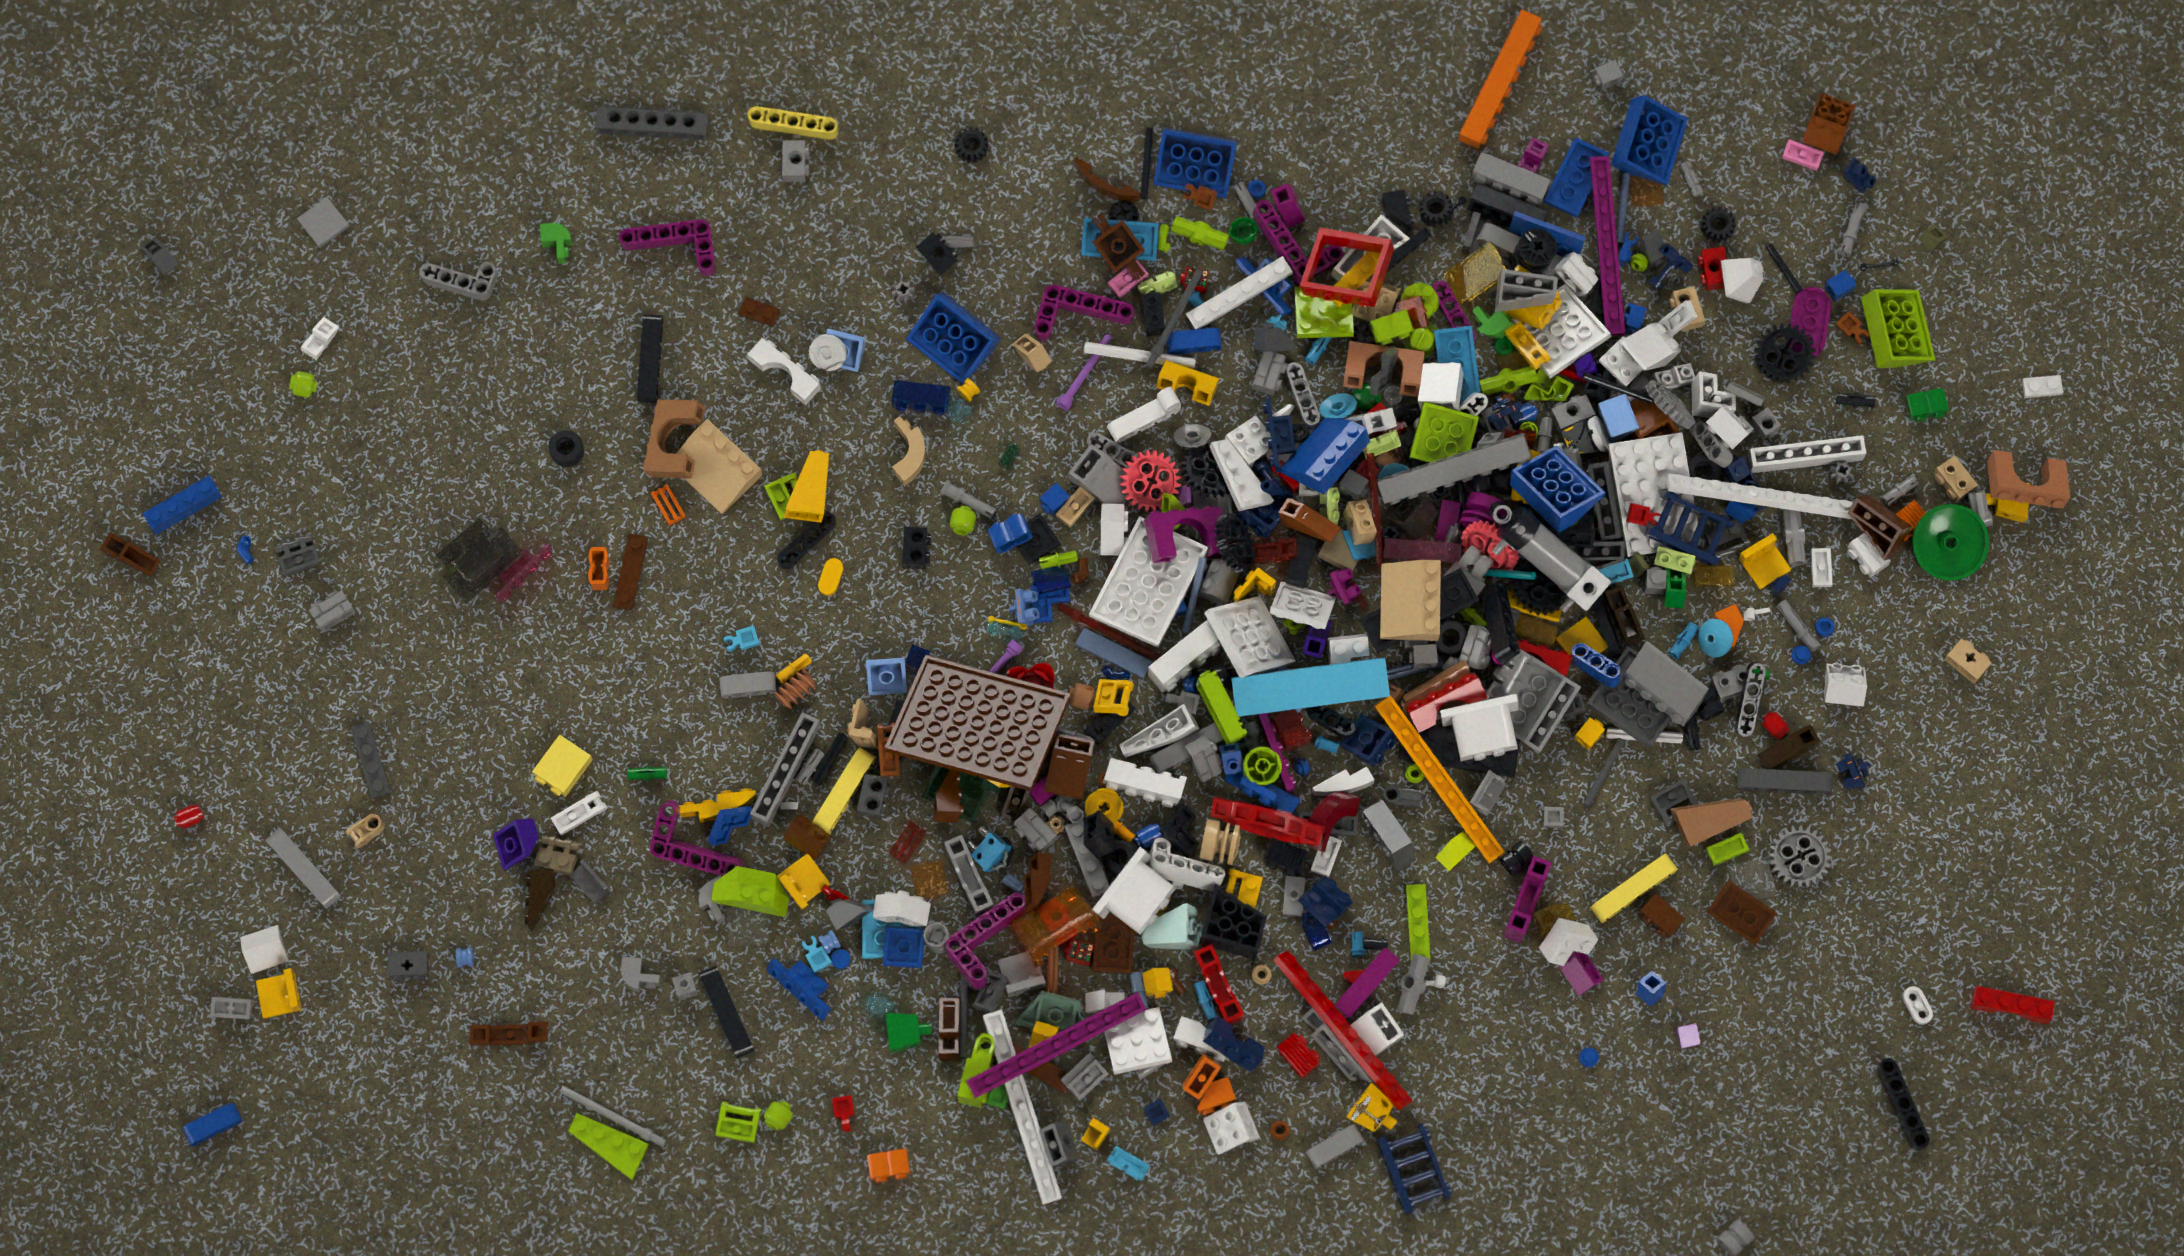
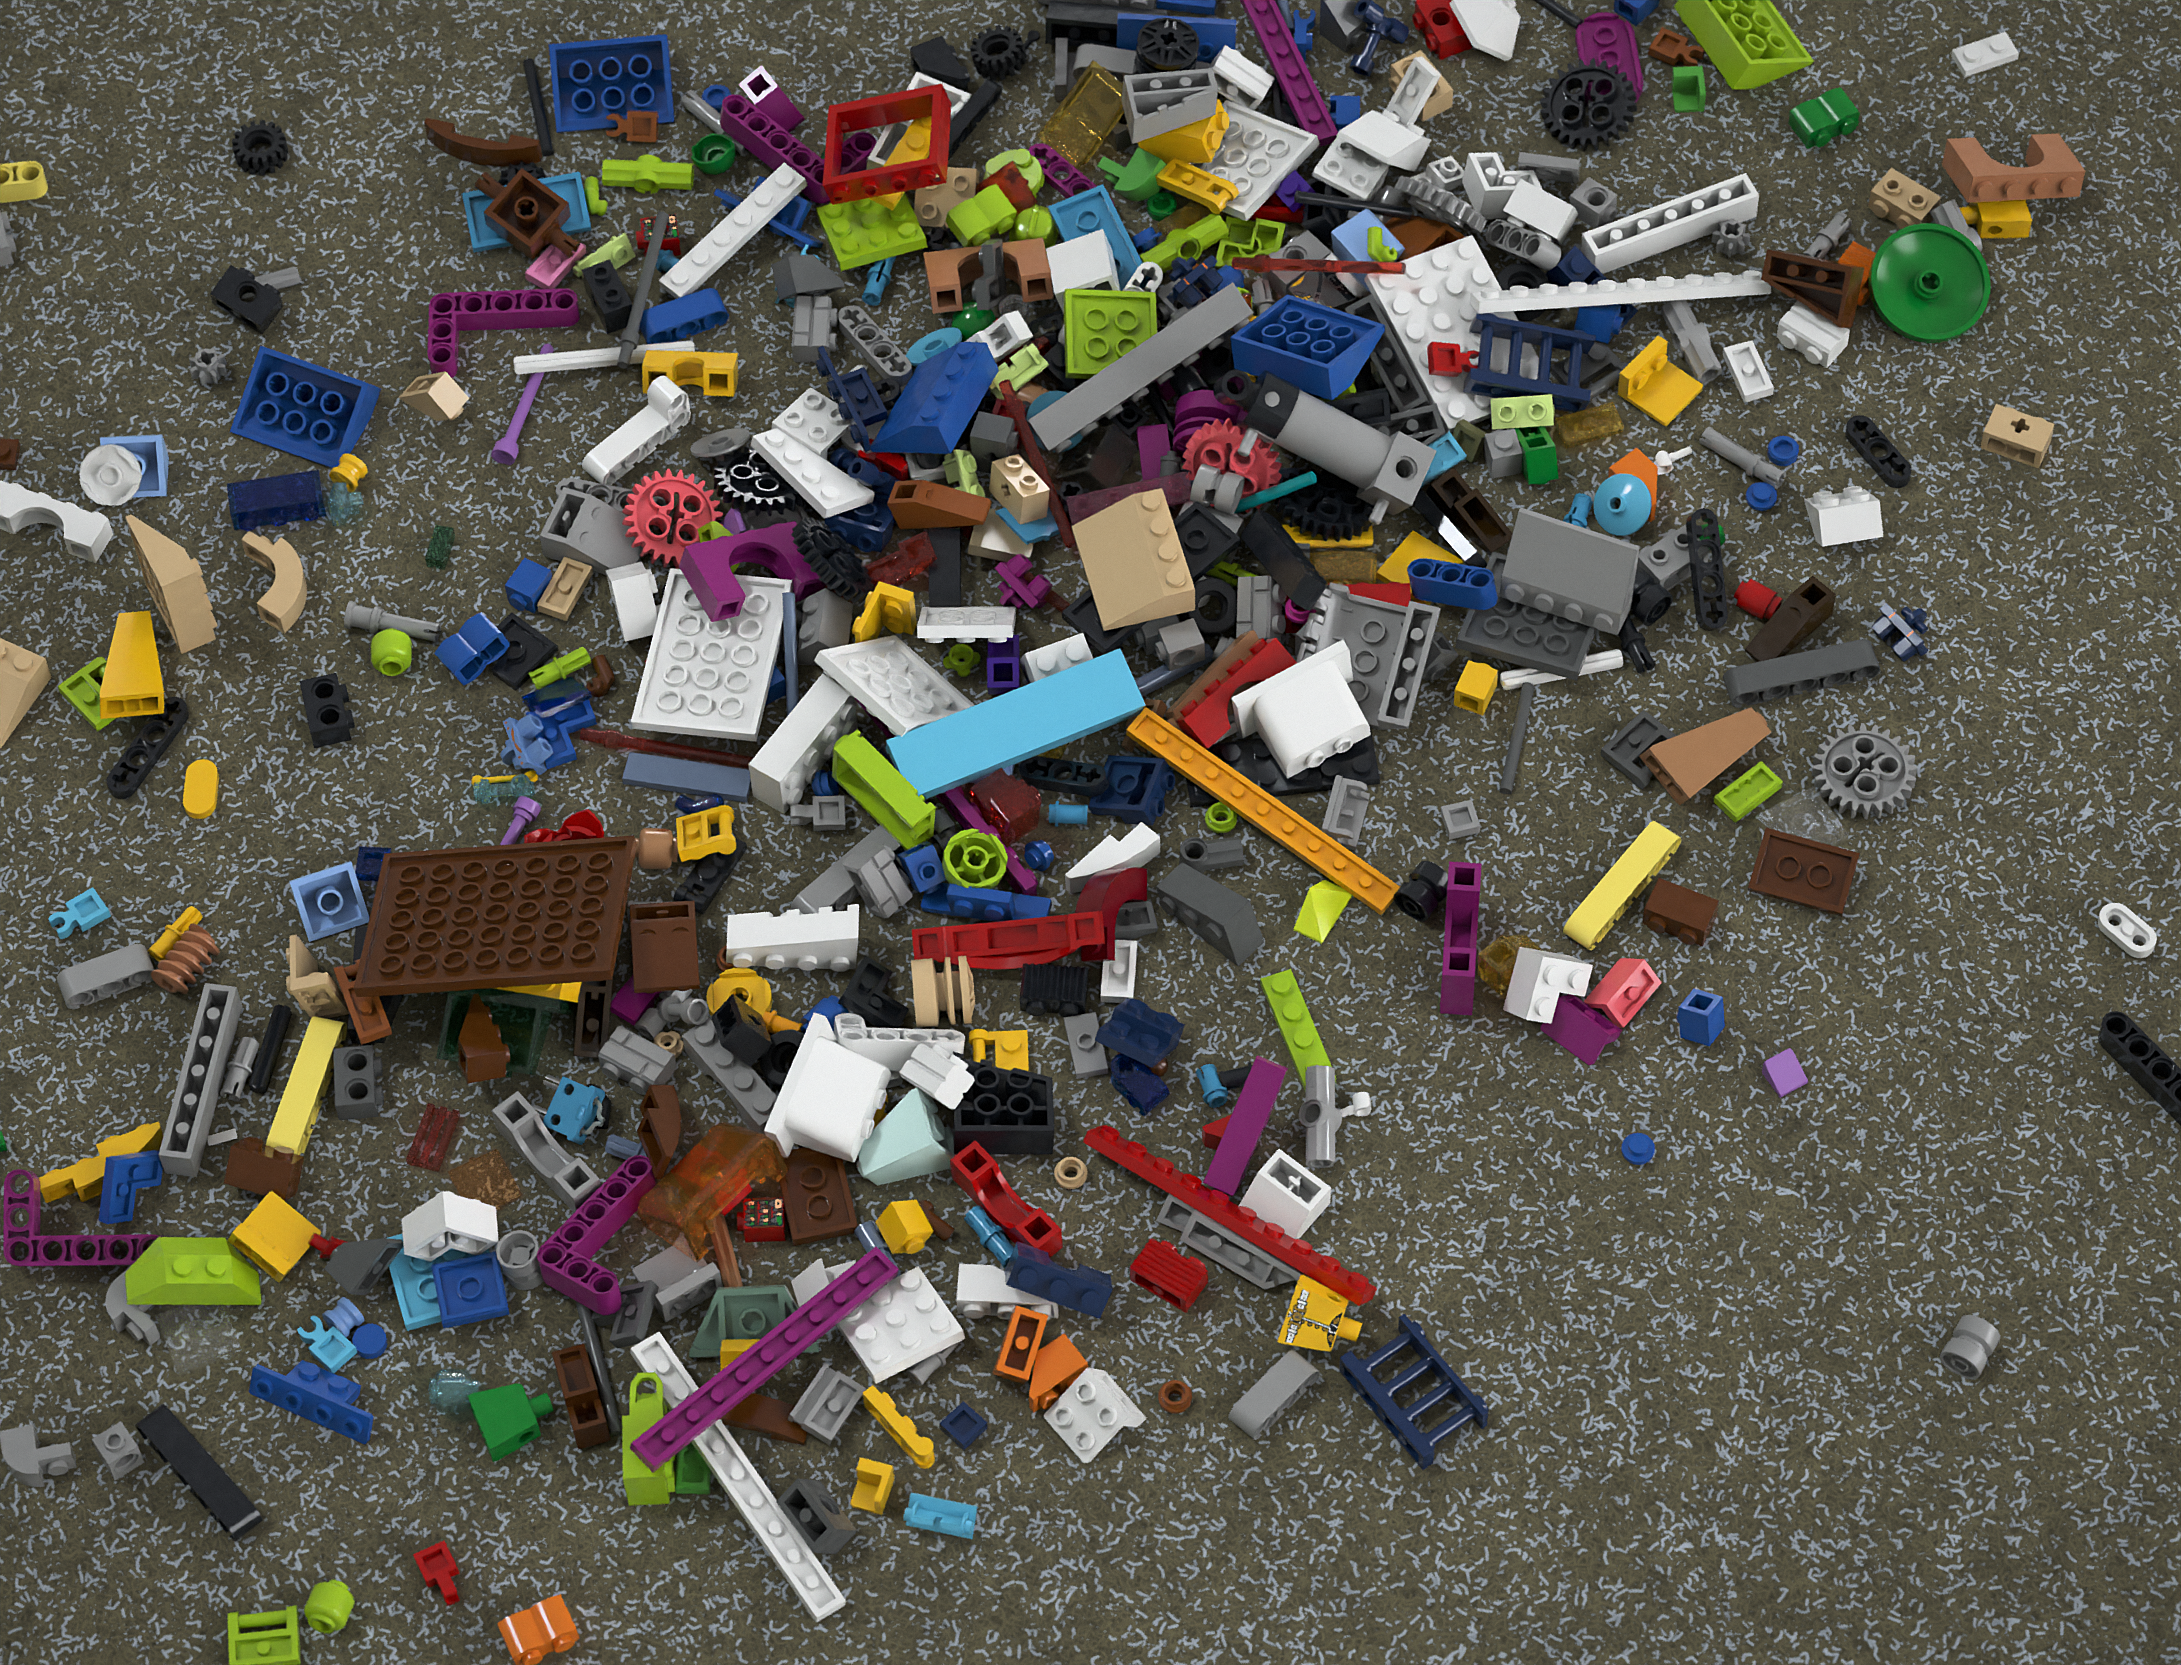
camera: 15 degrees left, 15 degrees down
(848, 451) = (174, 586): none -> tan slope
(1121, 1103) = (899, 1428): none -> yellow plate
(1165, 731) = (807, 857): white wedge -> none
(1201, 898) = (938, 1074): none -> white brick
(1487, 368) = (1146, 239): none -> blue plate
(1551, 412) = (1264, 264): none -> clear red bar
(1612, 955) = (1624, 990): none -> coral panel
(1621, 426) = (1376, 249): none -> lime arm
(1639, 262) = (1329, 40): lime plate -> none
(1779, 585) = (1694, 409): dark blue plate -> none
(1850, 359) = (1688, 89): none -> bright green panel
(1855, 400) = (1715, 140): black pin -> none
(1872, 633) = (1878, 439): none -> black beam

